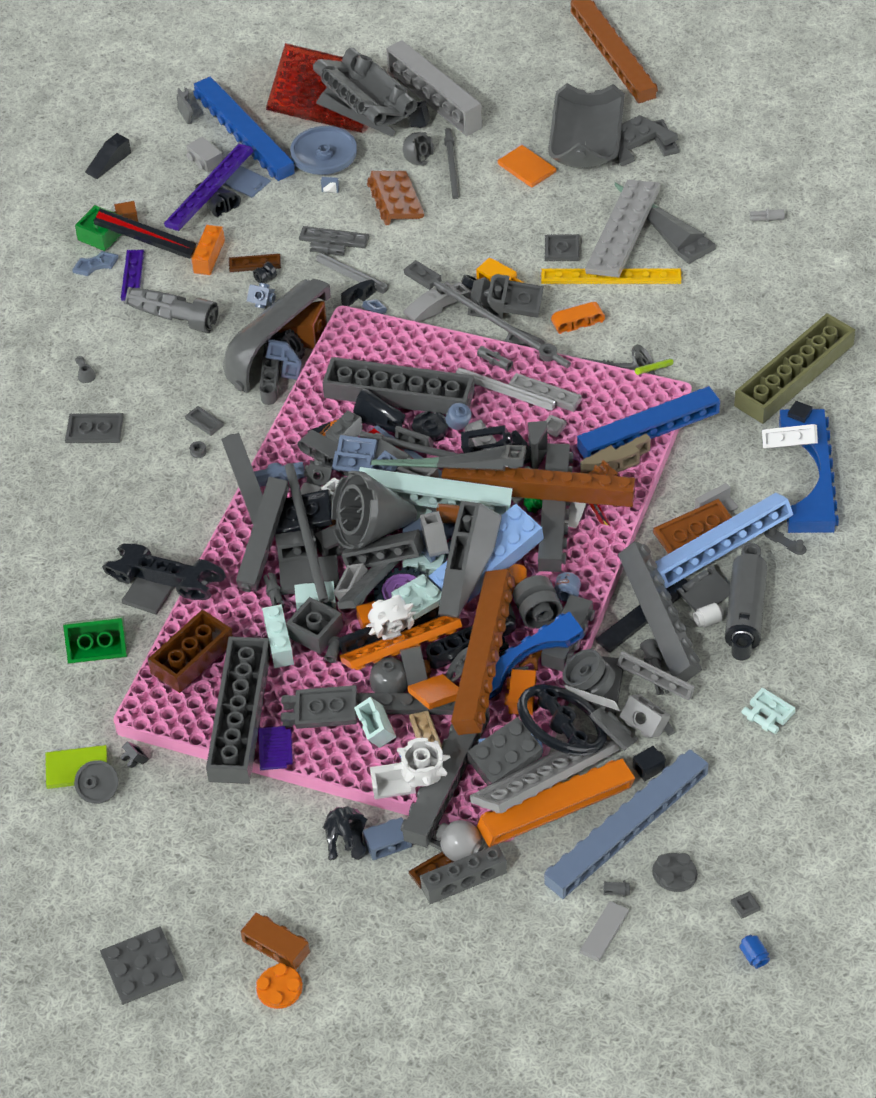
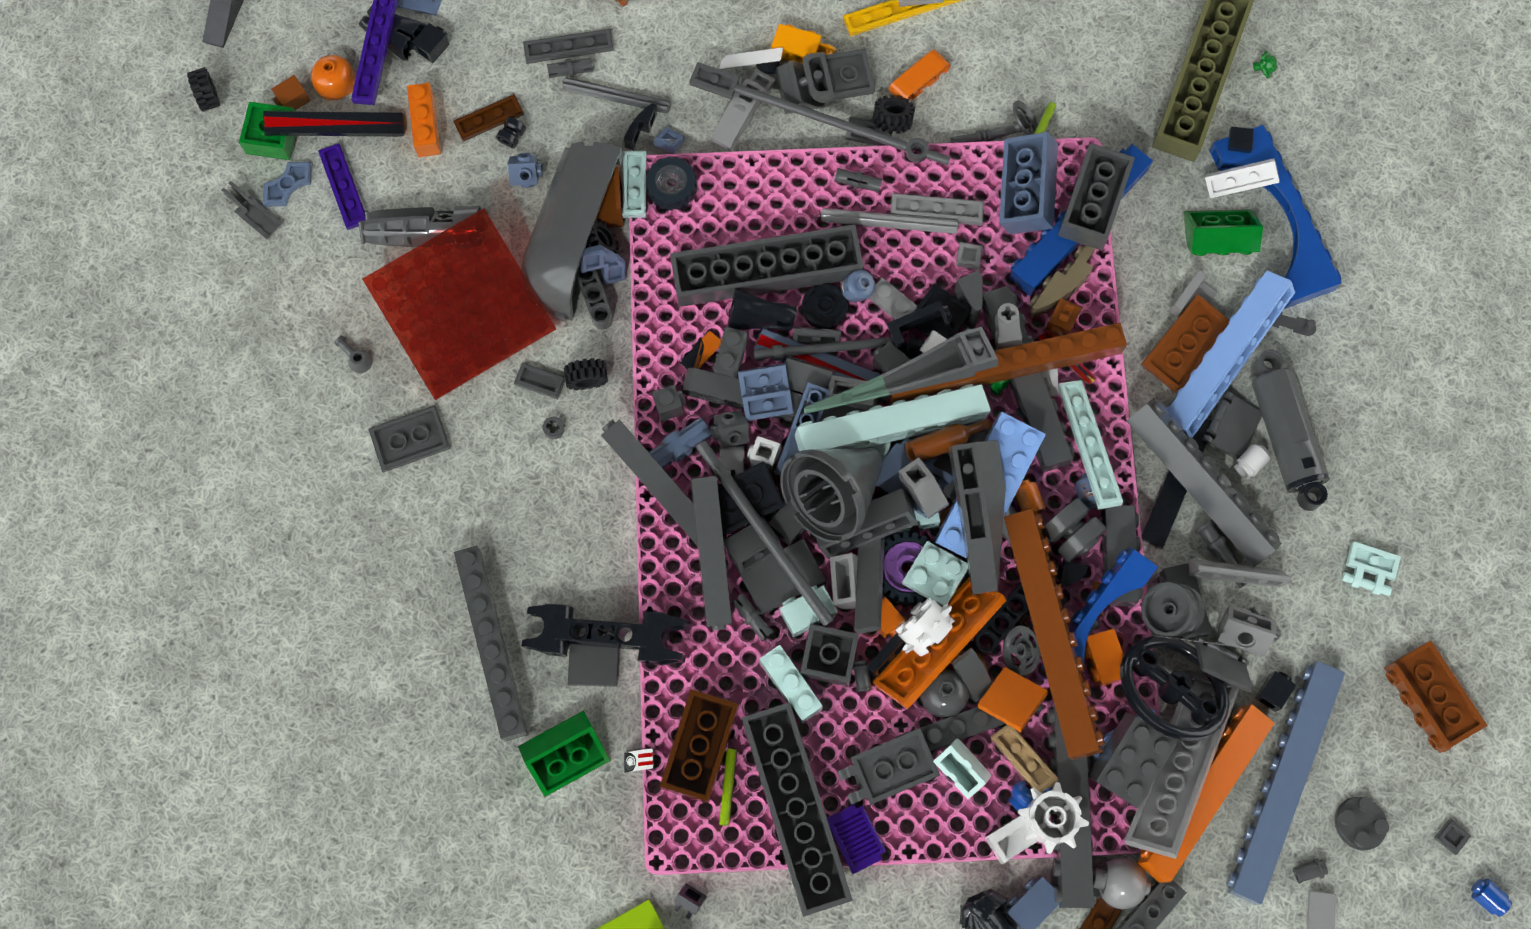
camera: 25 degrees left, 25 degrees up
(63, 273) = (254, 213): none -> dark grey arm
(69, 193) = (203, 89): none -> black tyre
(81, 558) = (490, 644): none -> dark grey brick
(146, 654) = (638, 760): none -> sticker
(159, 210) = (333, 77): none -> orange cylinder
(171, 354) = (459, 304): none -> clear red plate
(198, 687) = (727, 787): none -> lime bar
(233, 413) = (585, 374): none -> black tyre
(238, 209) = (431, 42): none -> black brick
(283, 447) = (668, 402): none -> dark grey brick
(332, 320) = (634, 184): none -> light aqua tile
(358, 325) = (673, 171): none -> black wheel
(460, 273) = (751, 58): none -> white sticker
(522, 633) = (1072, 573): none -> black tile
(544, 331) = (893, 114): none -> black tyre
(553, 459) = (1007, 331): none -> light grey piece
(579, 555) = (1090, 444): none -> light aqua tile
(617, 388) = (1028, 183): none -> sand blue brick
(659, 403) = (1096, 196): none -> dark grey brick
(759, 470) = (1223, 232): none -> green slope
(776, 807) = (1434, 697): none -> dark orange bracket
(849, 377) = (1267, 64): none -> green plant

